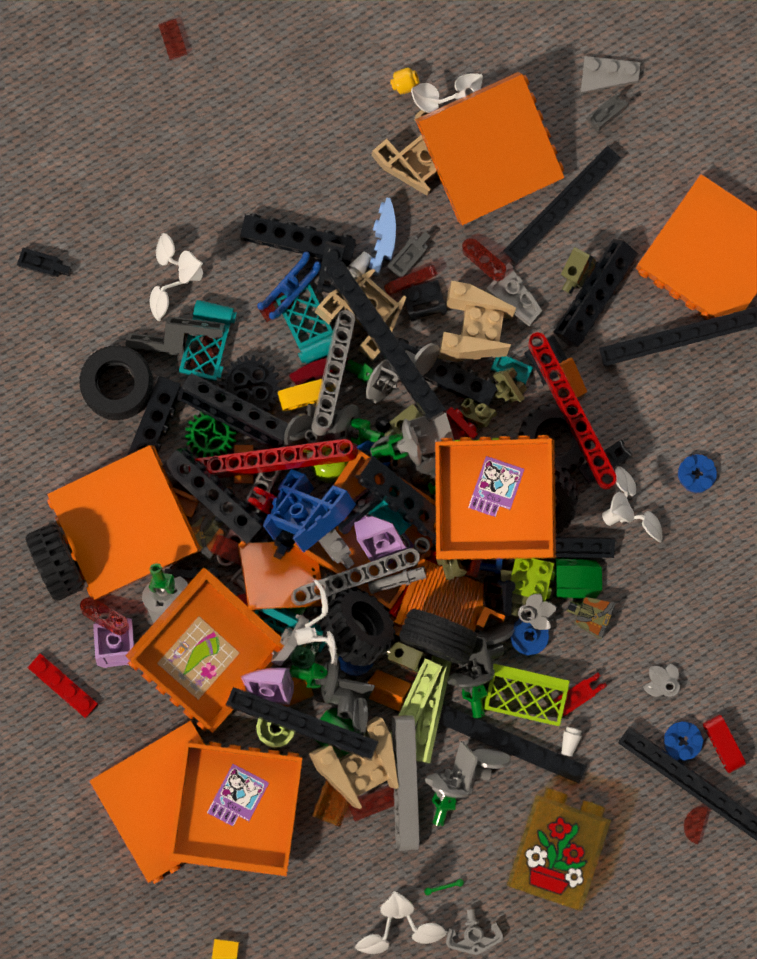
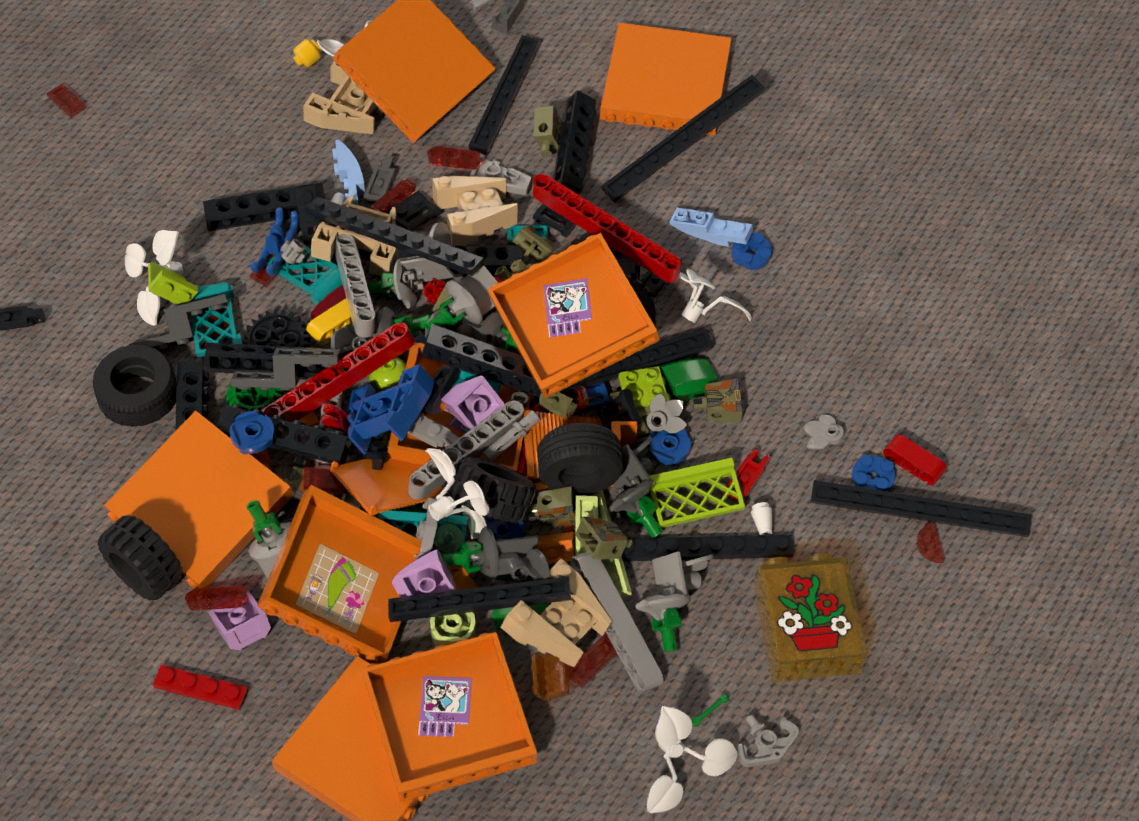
camera: 25 degrees left, 25 degrees down
(177, 496) = (252, 443): none -> blue plate
(181, 296) = (170, 285): none -> lime bracket
(241, 432) = (285, 368): none -> dark grey bracket
(300, 304) = (293, 251): none -> light grey gear
(403, 397) = (433, 290): none -> red gear
(425, 712) = (602, 538): none -> olive torso
(672, 435) = (706, 227): none -> light blue slope

